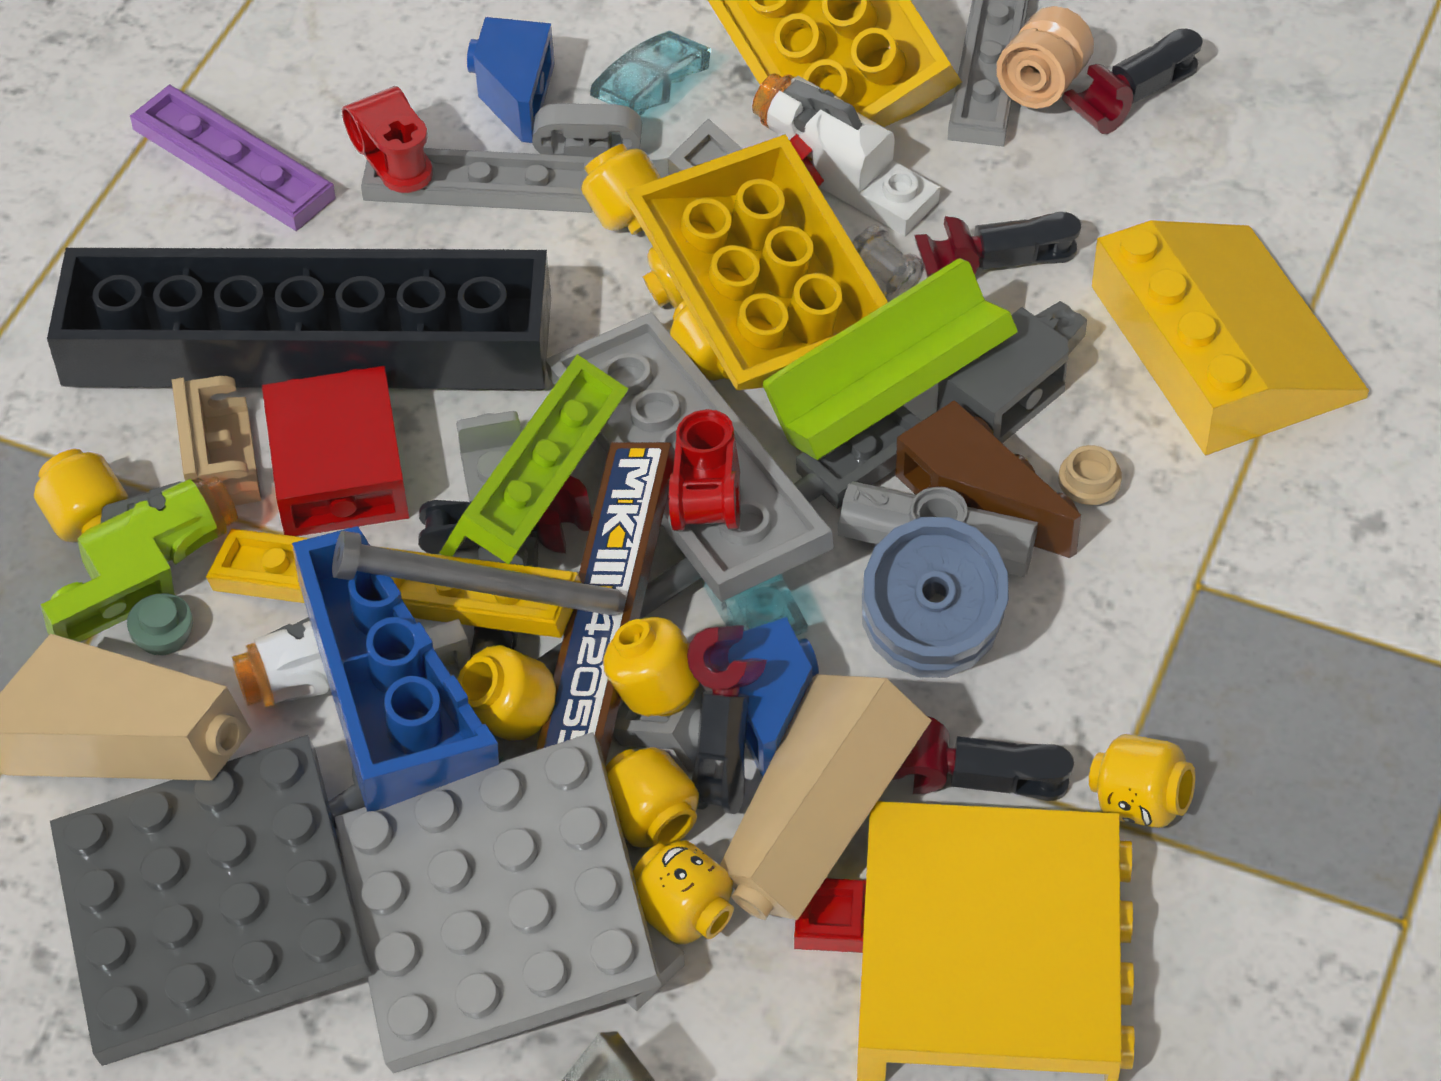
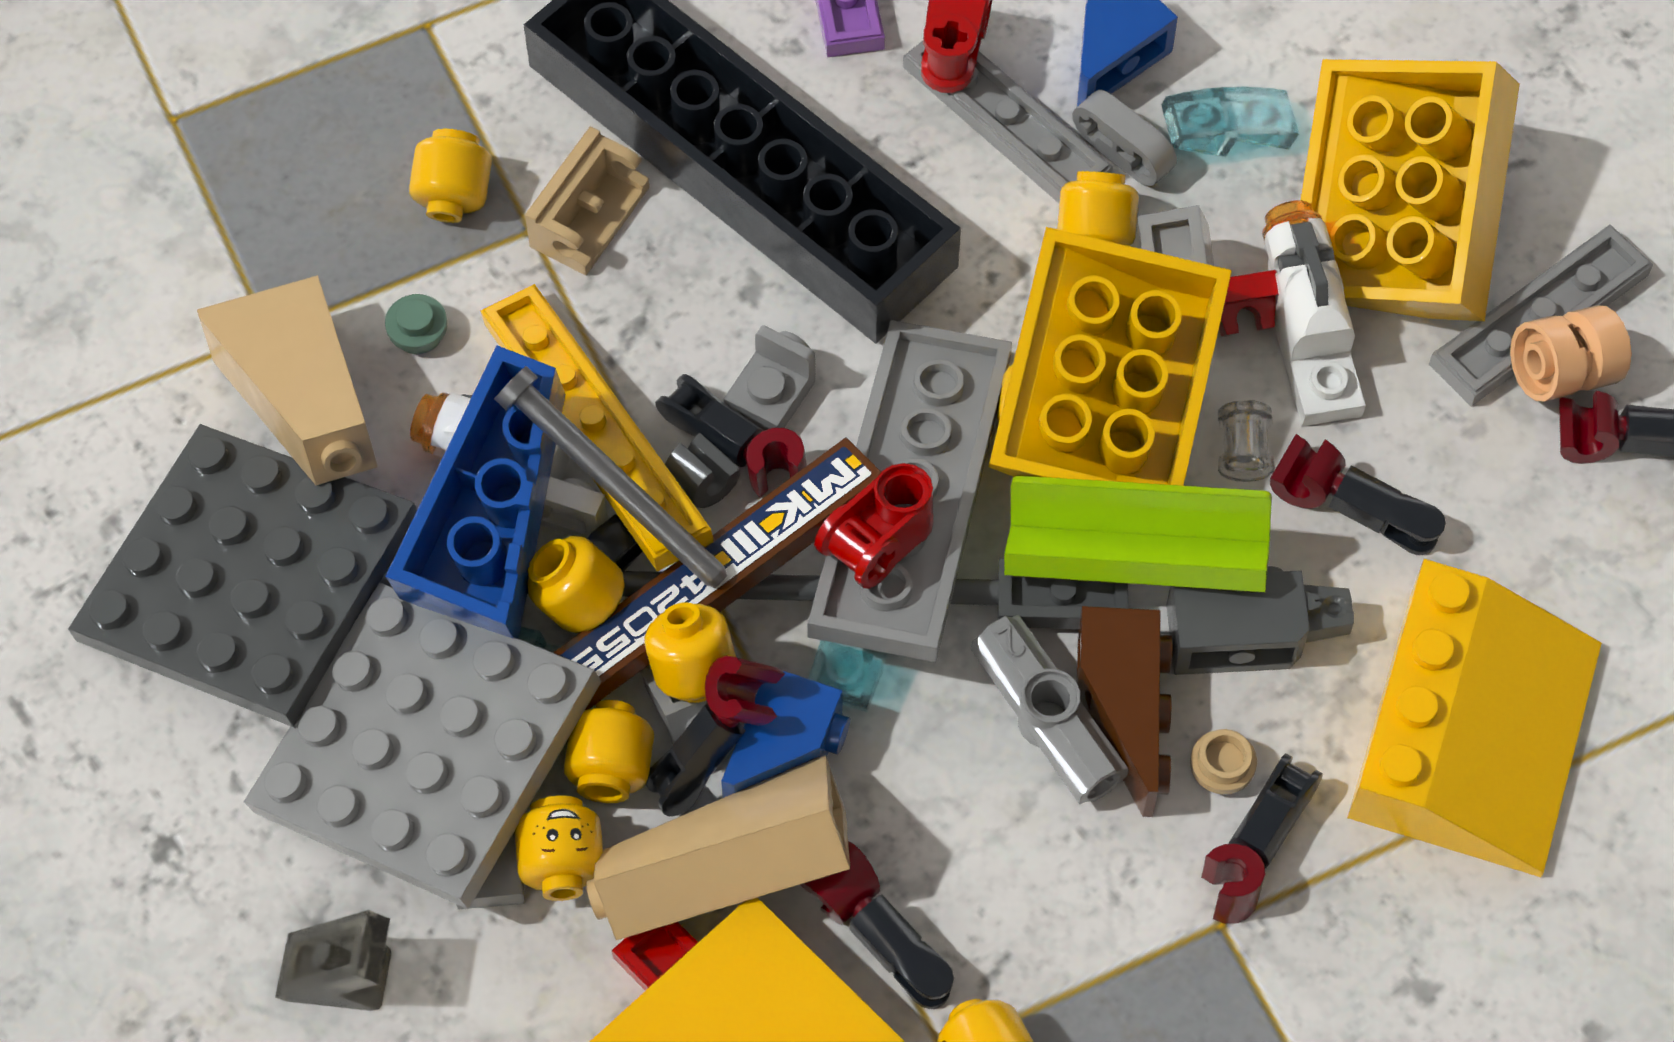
camera: 40 degrees right, 10 degrees up
(132, 551) = (440, 247): lime plate -> none
(334, 452) = (660, 275): red panel -> none
(539, 461) = (779, 410): lime panel -> none
(908, 570) = (932, 749): sand blue wheel -> none
(1174, 520) = (1257, 841): none -> piece

